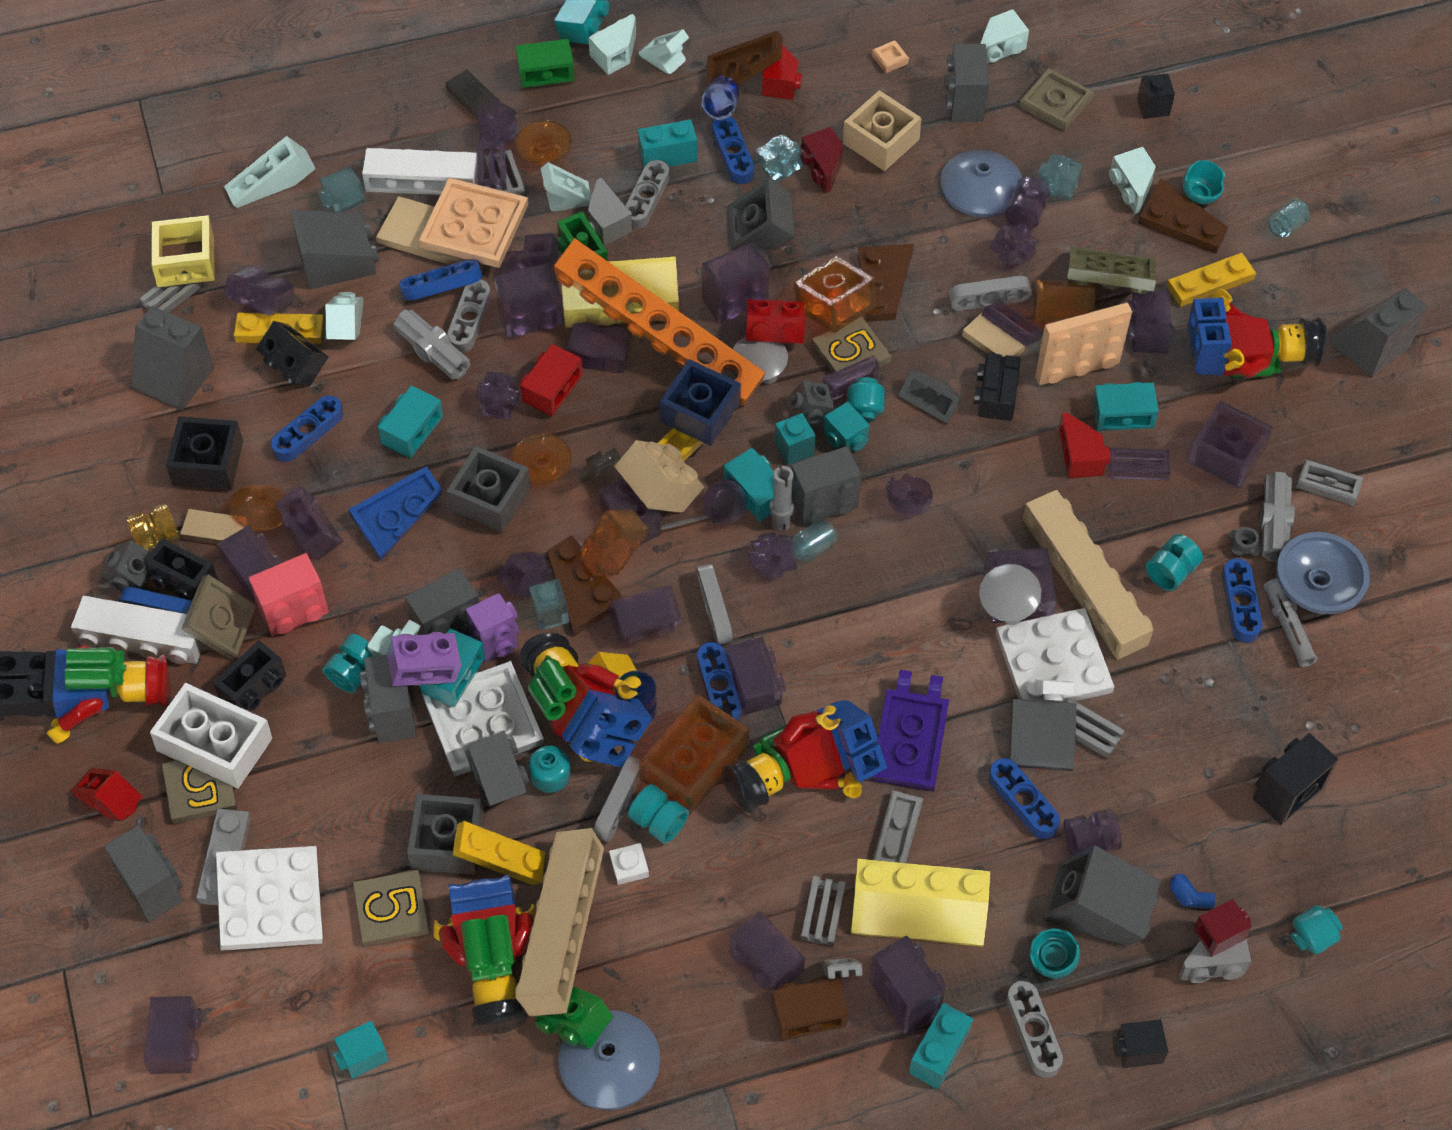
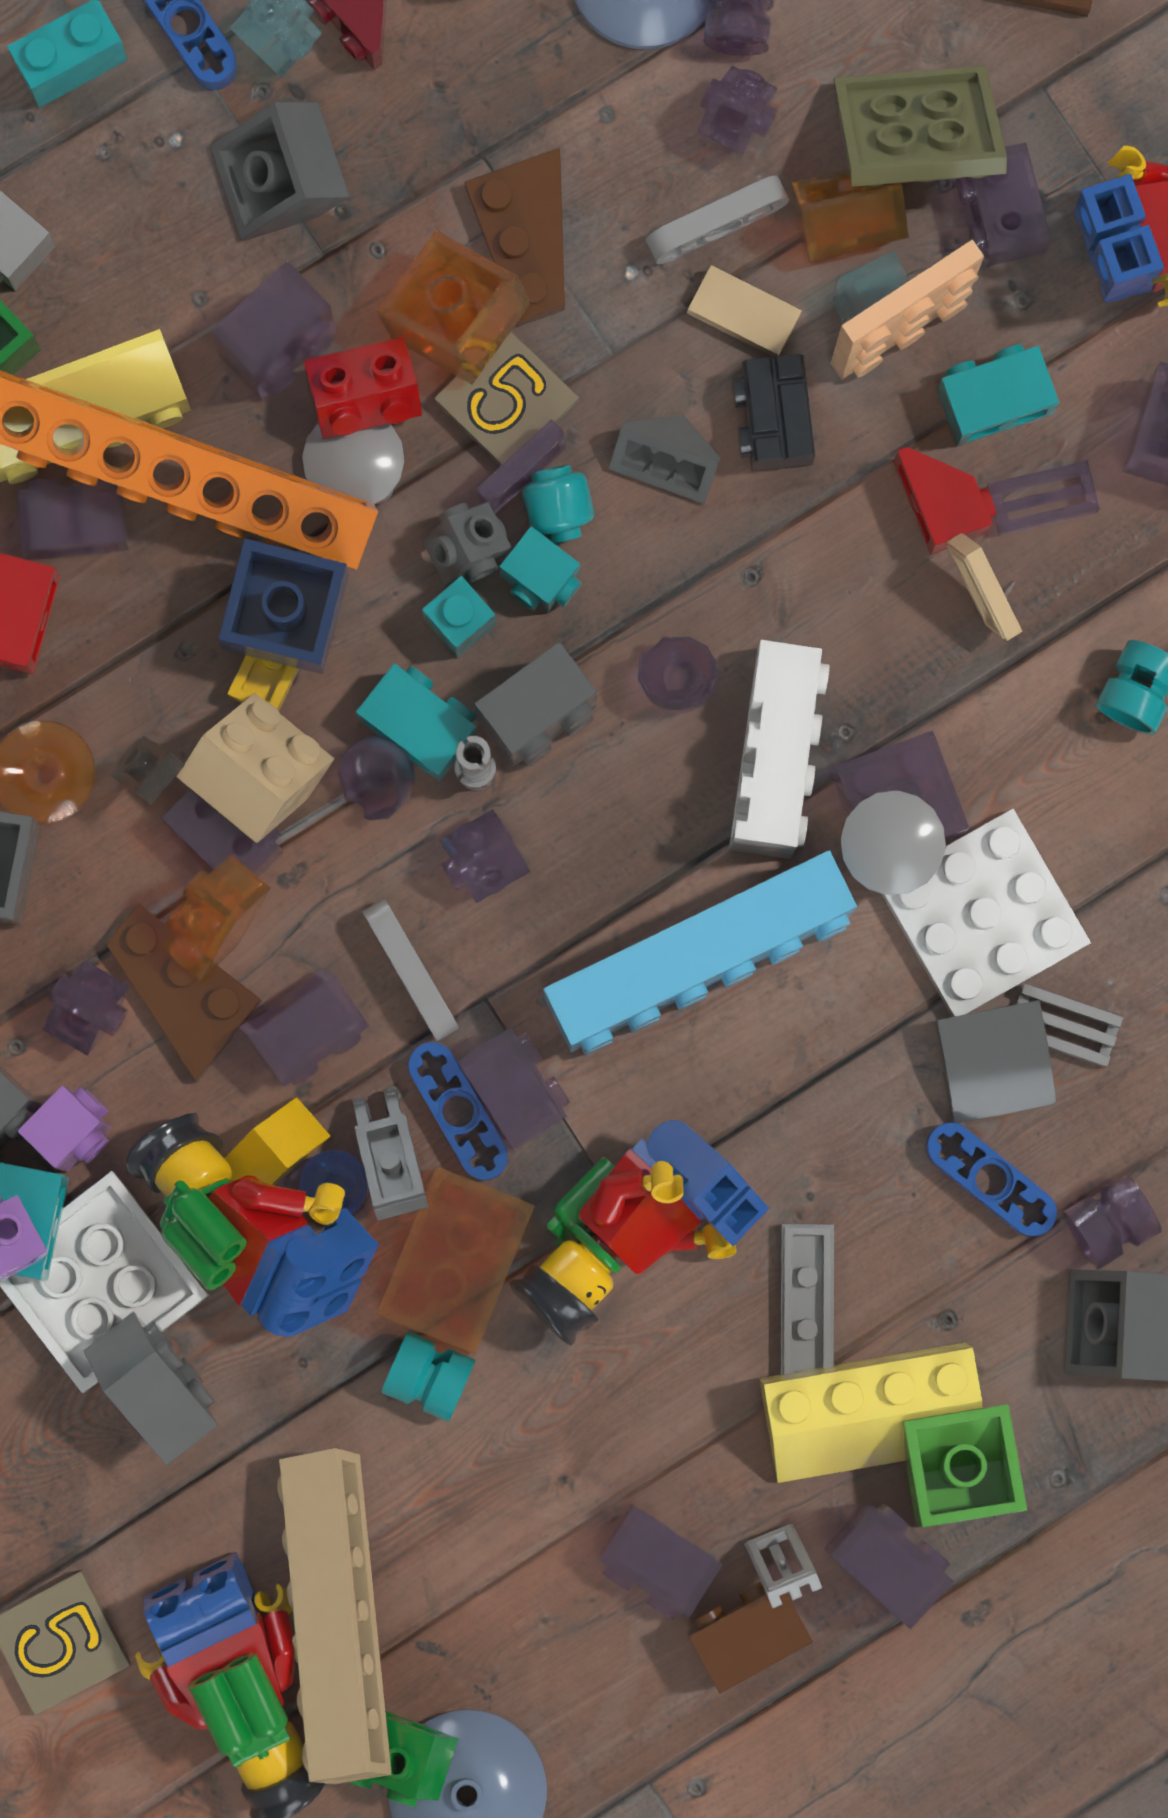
camera: 20 degrees left, 25 degrees up
(435, 831) = (107, 1509): dark grey brick -> none
(499, 853) = (202, 1525): yellow plate -> none
(549, 604) = (141, 1050): clear light blue brick -> none
(549, 769) = (254, 1348): teal head -> none
(618, 800) = (358, 1364): light grey beam -> none
(629, 863) = (404, 1464): white plate -> none
(646, 184) = (76, 128): light grey beam -> none
(671, 688) = (389, 1159): none -> hinge
(814, 540) = (542, 805): clear light blue brick -> none
(828, 886) = (729, 1504): light grey tile -> none
(882, 628) = (699, 952): none -> medium azure brick
(912, 734) = (788, 1115): dark purple tile -> none
(940, 1046) = (961, 1640): teal brick -> none
(953, 546) = (777, 750): none -> white wedge
(968, 943) = (963, 1466): none -> bright green slope
(1013, 323) = (767, 277): tile -> none
(1017, 1010) = (1102, 1604): light grey beam -> none
(1054, 688) = (1000, 988): white plate -> none
(1054, 953) = (1097, 1440): teal hair -> none
(1088, 574) = (1003, 743): tan brick -> none
(1094, 489) = (983, 586): none -> tan tile
(1210, 278) = (1090, 80): yellow plate -> none

